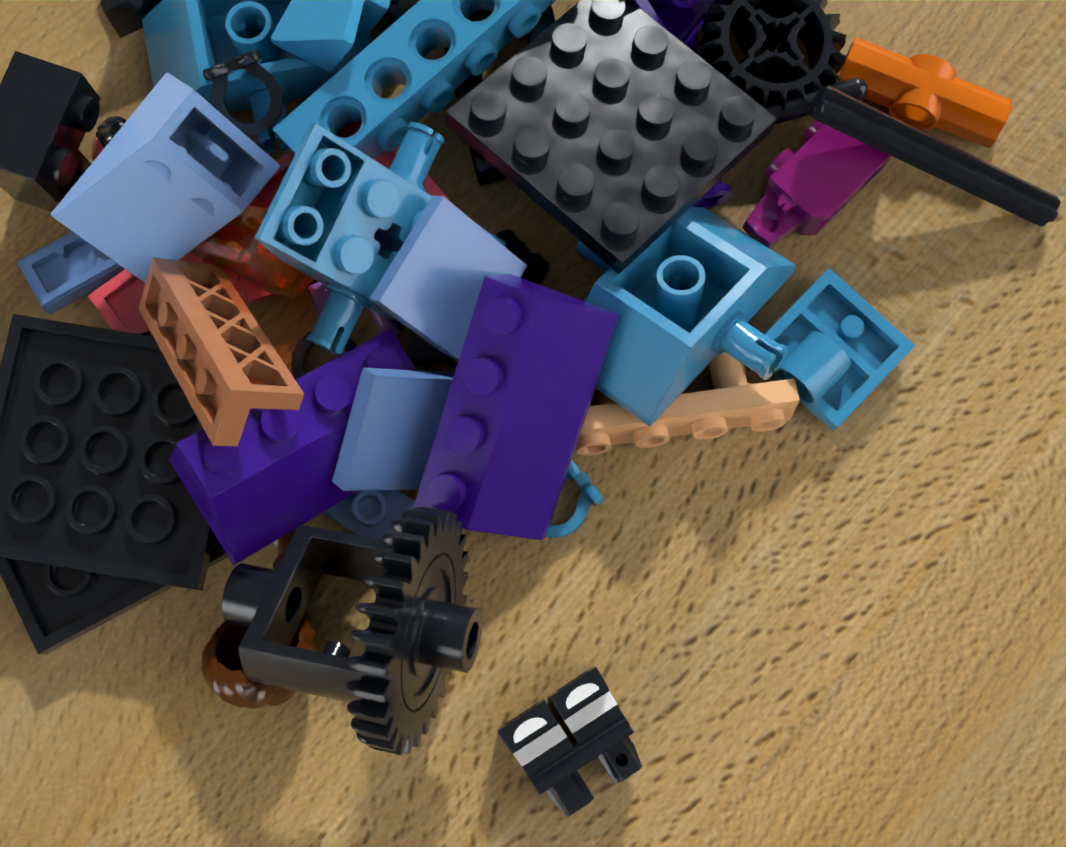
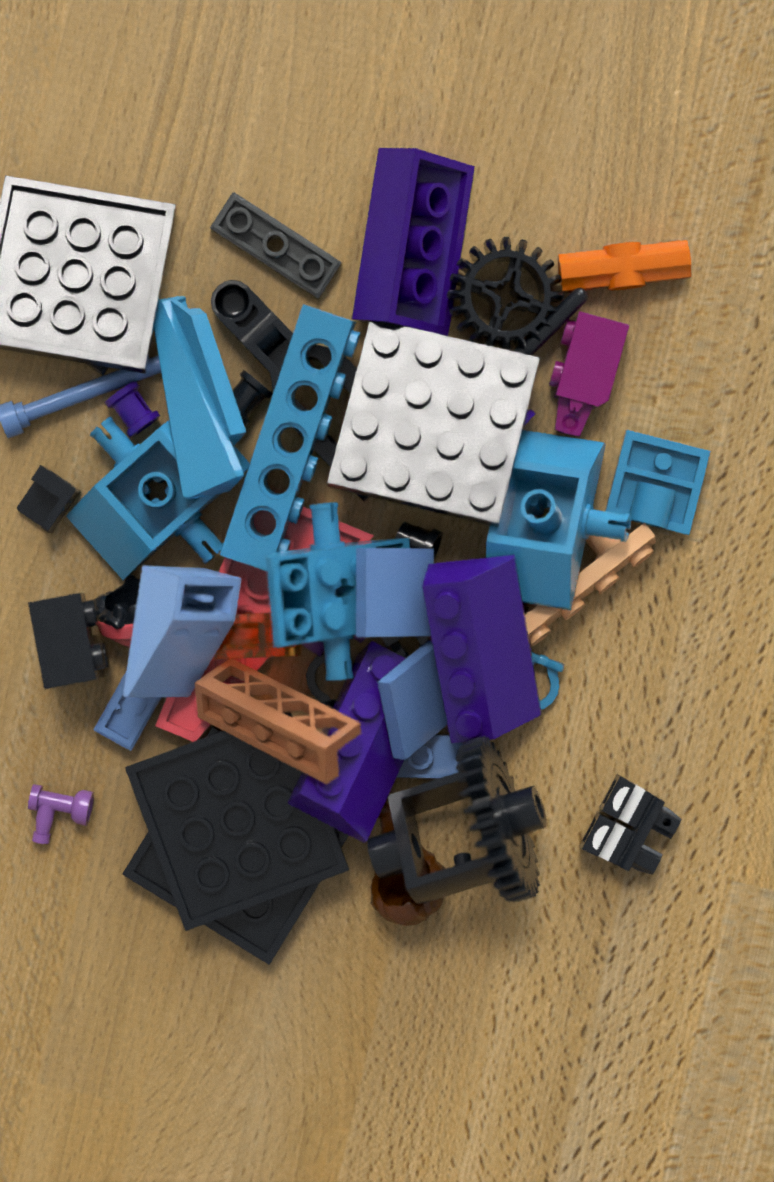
camera: 30 degrees left, 10 degrees up
(250, 63) = (179, 519): black piece -> none
(933, 156) = (657, 318): black axle -> none

